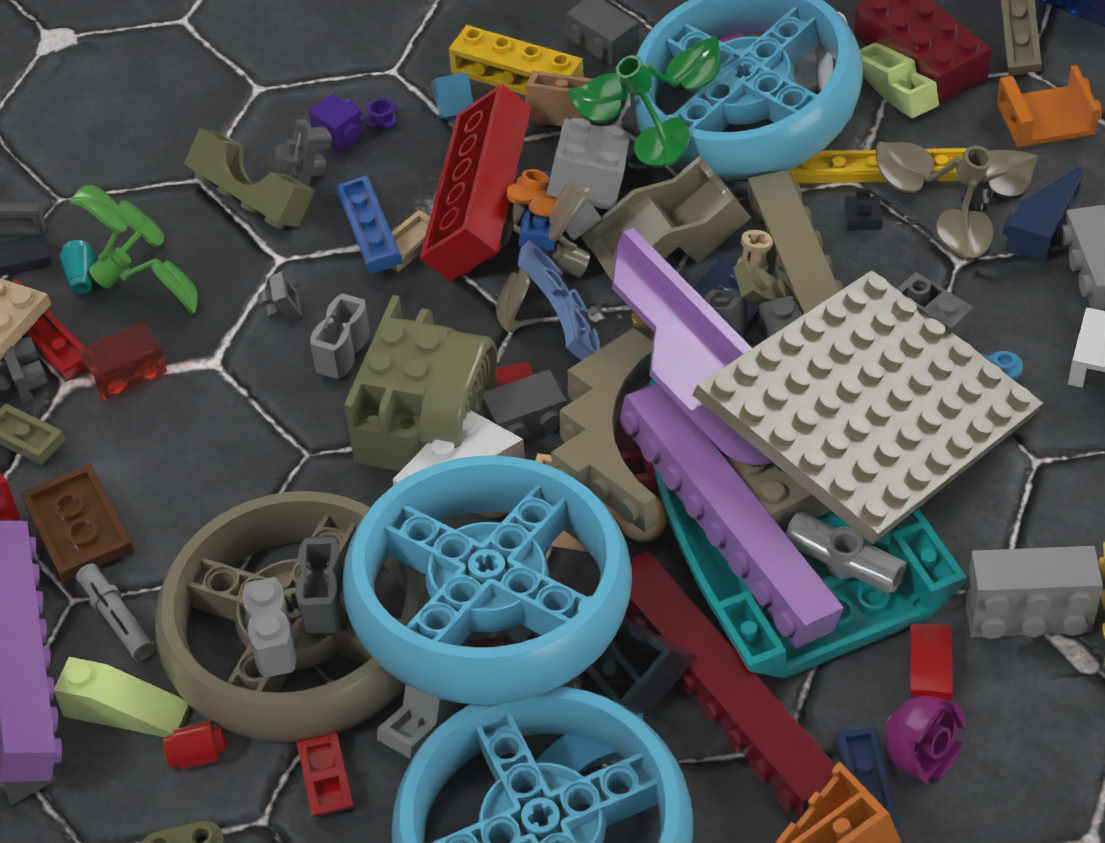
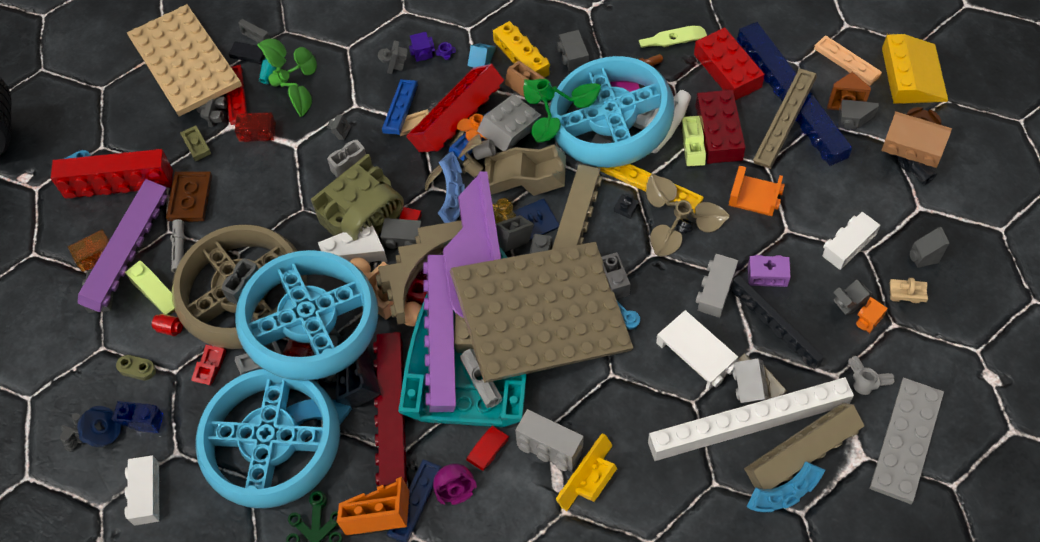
camera: 30 degrees right, 10 degrees up
(220, 162) = (356, 44): olive arch -> none
(269, 627) = (209, 293): light grey brick -> none
(753, 250) = (557, 201): tan bush -> none
(758, 285) = (541, 224): olive plate -> none
(1038, 218) = (701, 251): dark blue slope -> none

